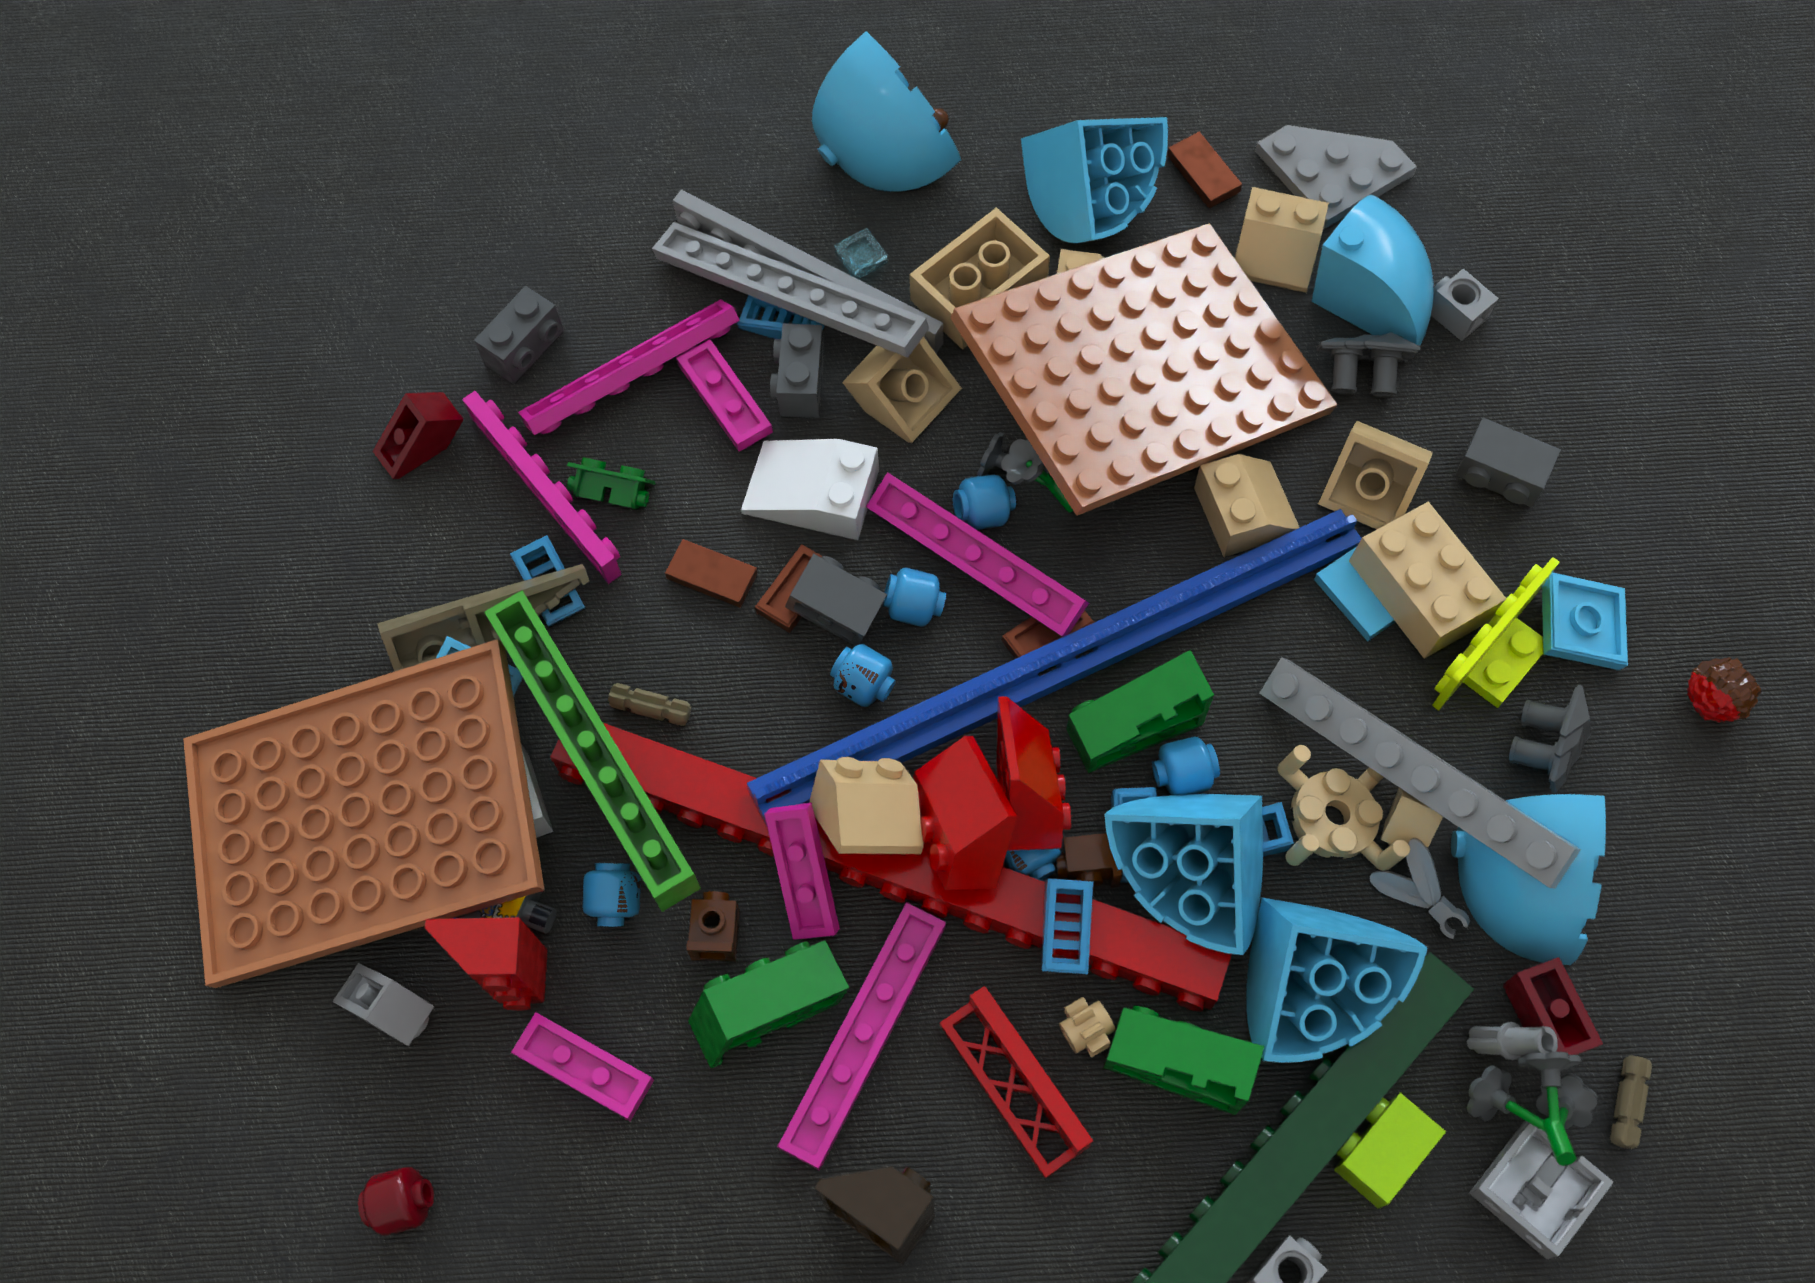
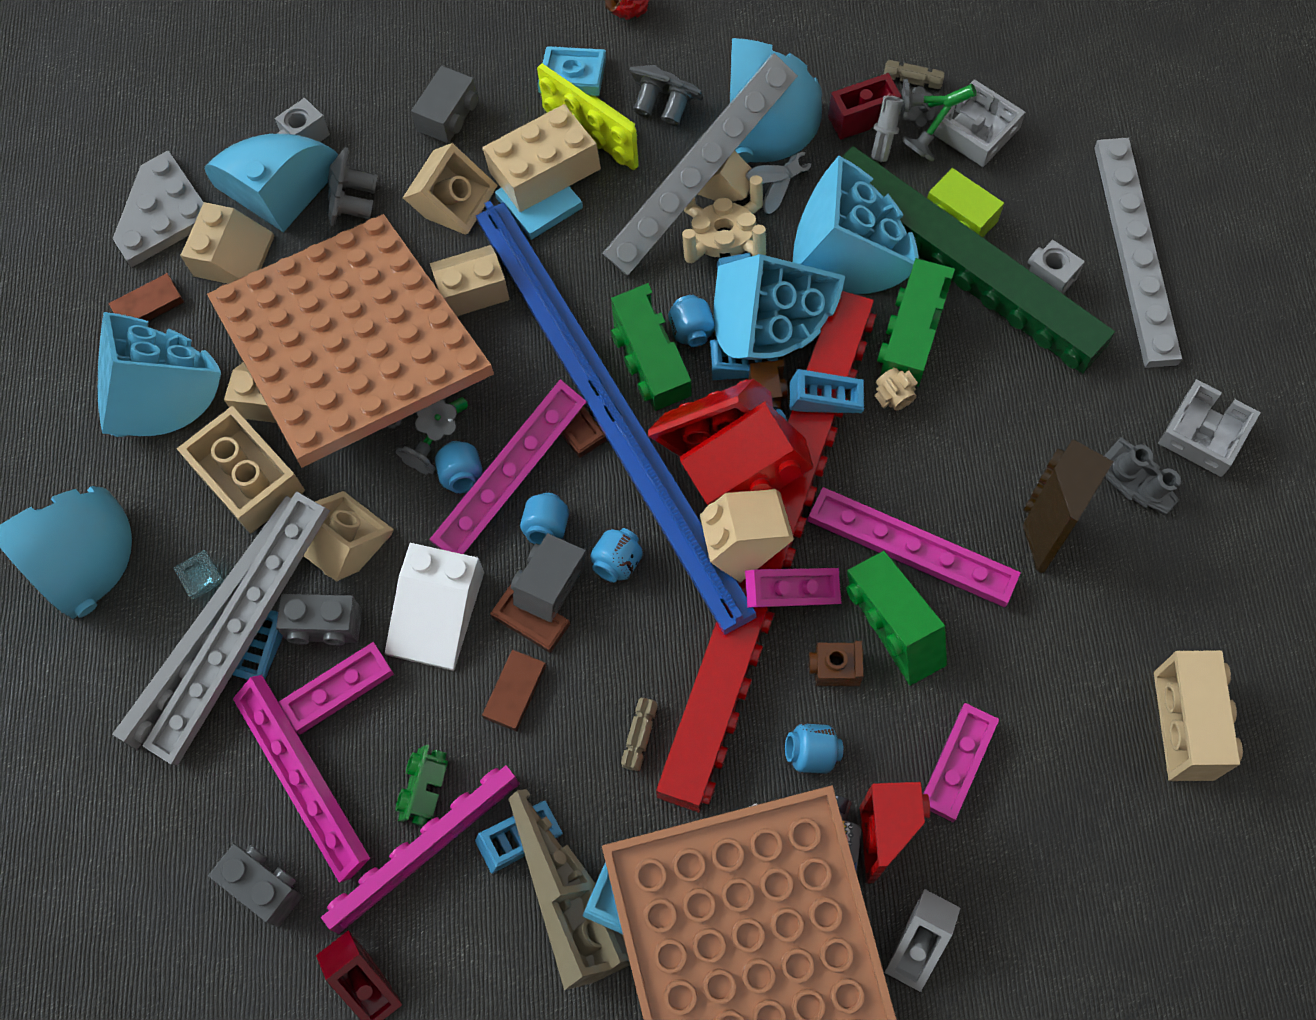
camera: 90 degrees left, 0 degrees up
(395, 1201) = (1087, 904): dark red head -> none
(593, 751) = (698, 758): bright green brick -> none
(1029, 1071) = (930, 429): red fence -> none

